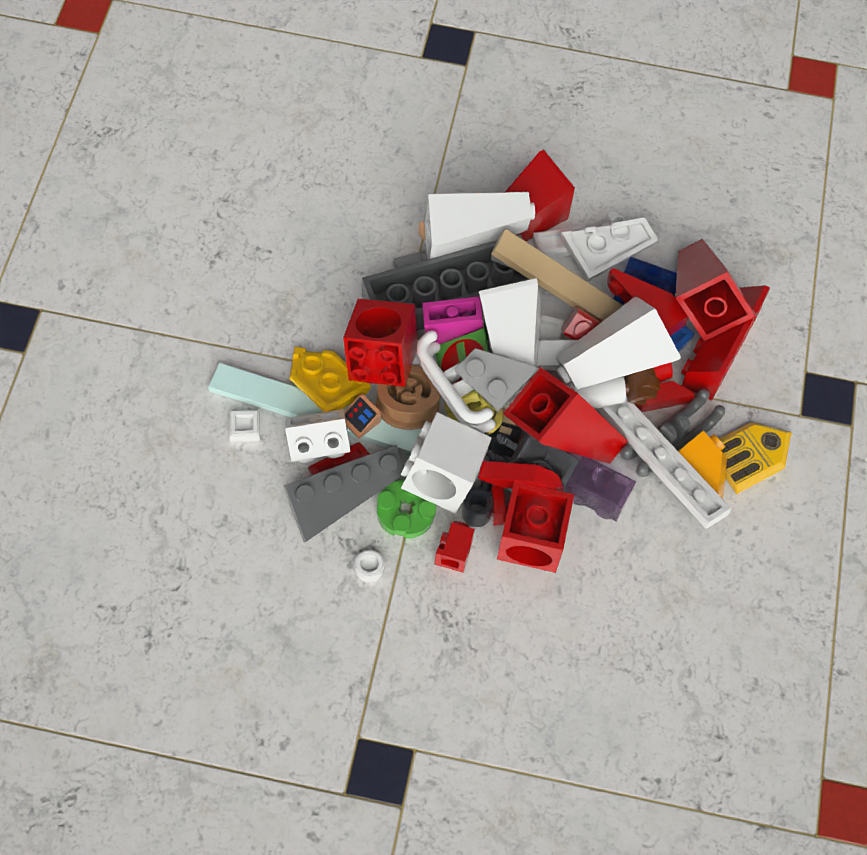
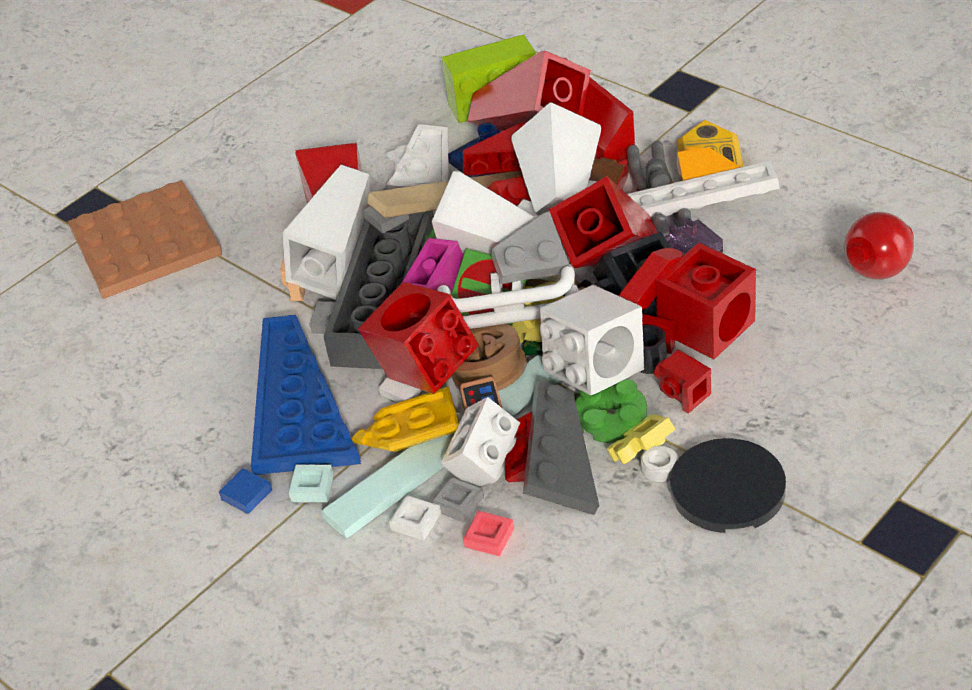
camera: 50 degrees left, 20 degrees down
(219, 305) = (245, 491): none -> blue tile
(241, 343) = (311, 483): none -> light aqua plate
(251, 480) = (488, 533): none -> coral tile
(273, 445) = (458, 499): none -> light grey tile
(300, 299) = (294, 406): none -> blue wing
(368, 622) = (728, 484): none -> black tile
(384, 543) = (643, 436): none -> light yellow plate
(433, 97) = (143, 238): none -> nougat plate
(677, 635) = (879, 245): none -> red brick
(738, 241) = (477, 67): none -> lime brick

